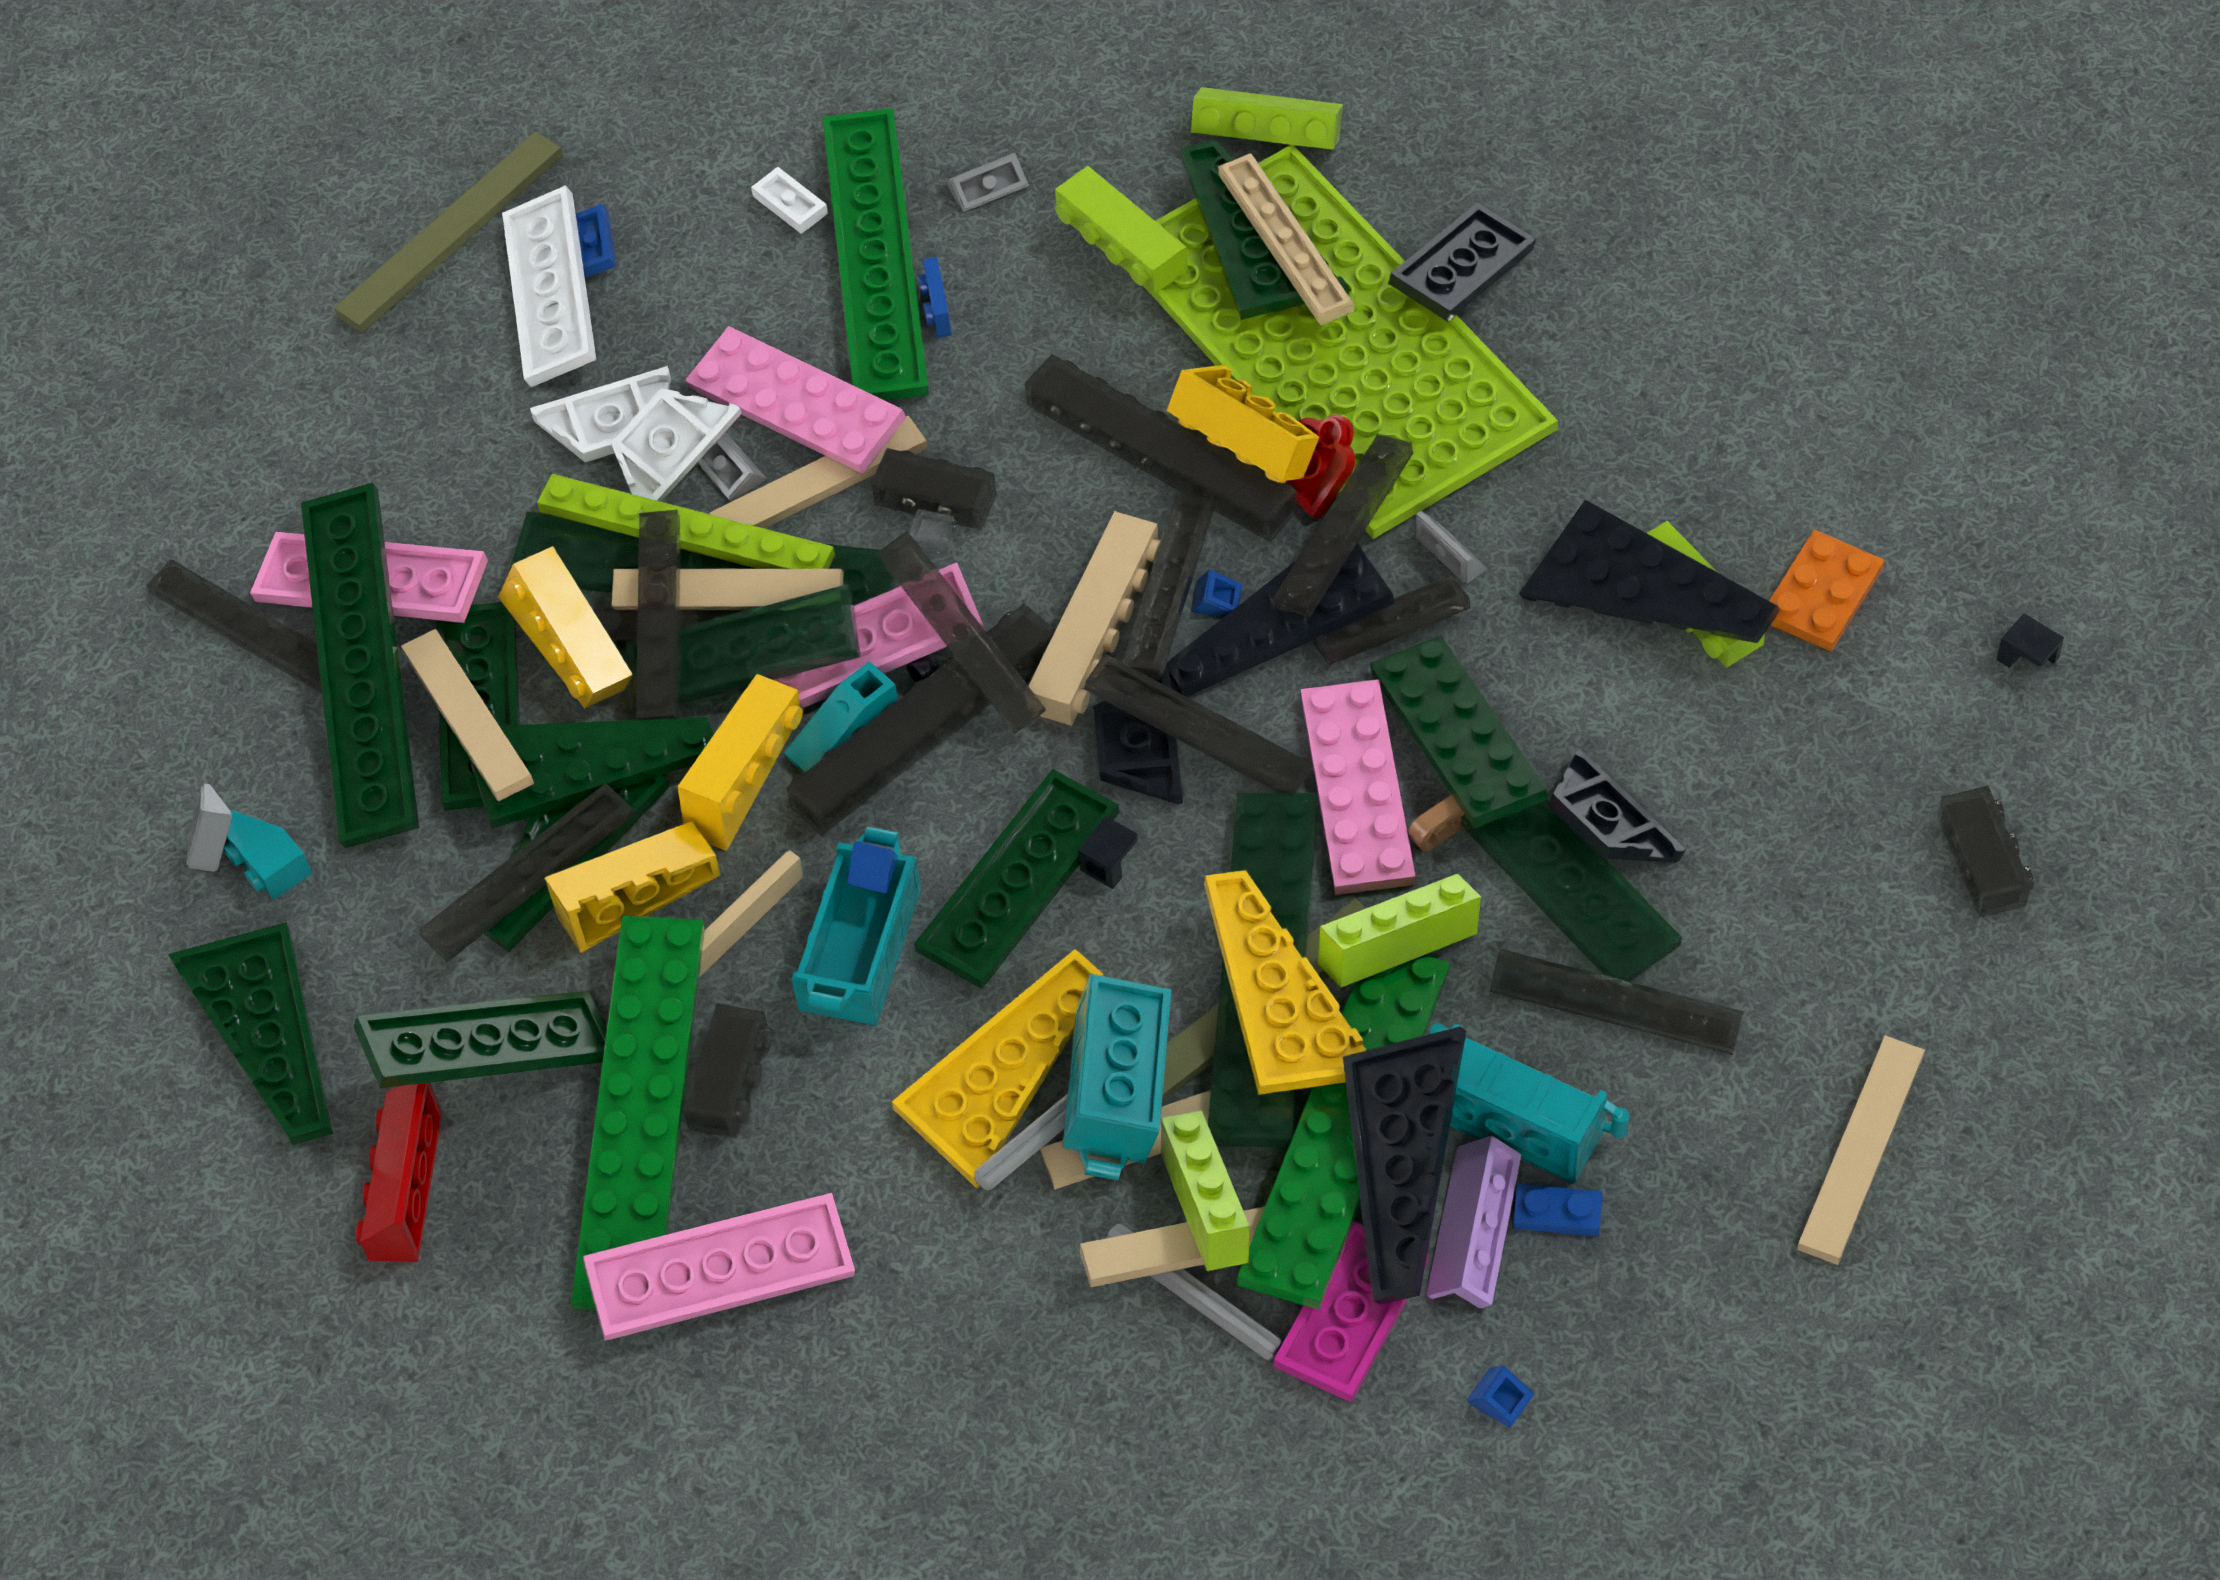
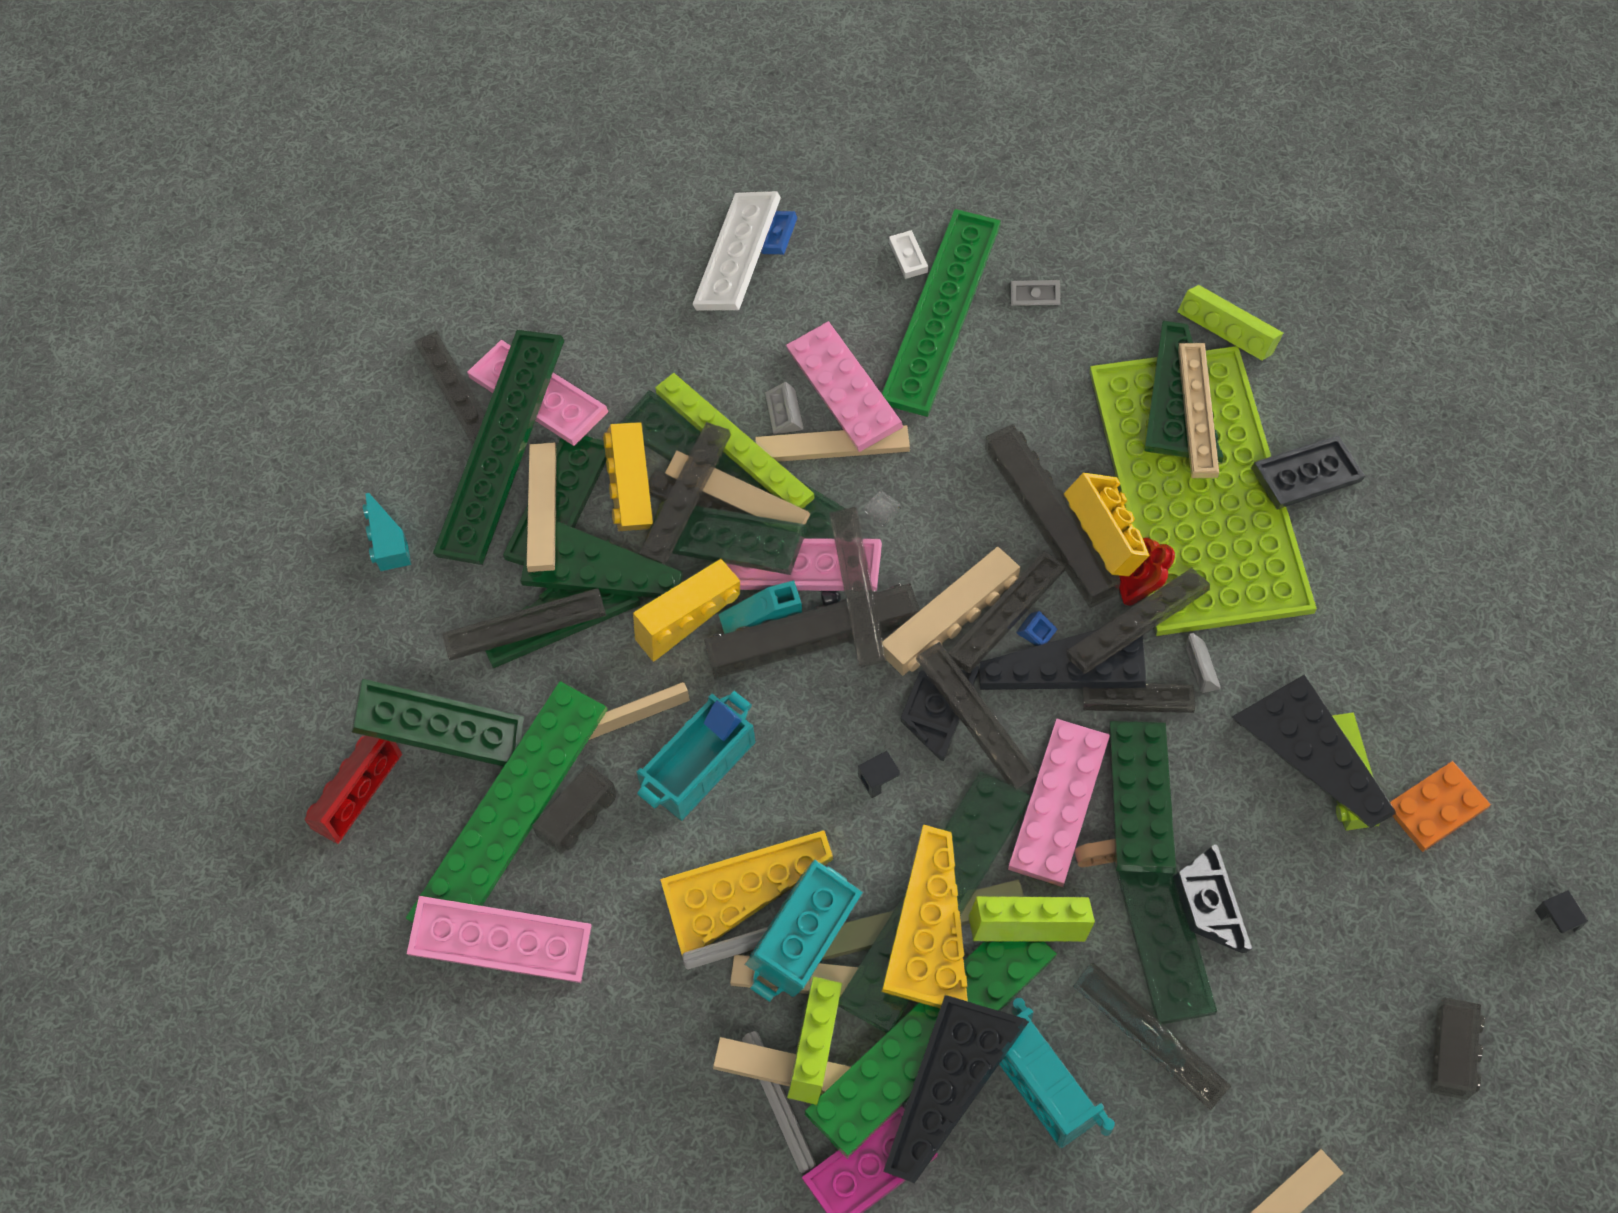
camera: 25 degrees right, 5 degrees up
(207, 831) = (360, 513): light grey slope -> none
(260, 1011) = (332, 639): dark green wing -> none
(448, 232) = (700, 191): olive tile -> none
(594, 418) = (730, 349): white wing -> none
(630, 883) = (581, 659): yellow wedge -> none
(669, 440) = (752, 381): white wing -> none
(932, 286) = (964, 347): blue plate -> none
(934, 485) = (898, 479): clear smoke brick -> none
(1014, 879) = (813, 764): dark green plate -> none
(1121, 230) = (1097, 360): lime brick -> none
(1474, 1221) = (980, 1145): lavender panel -> none
(1558, 1210) = (1039, 1163): blue plate -> none

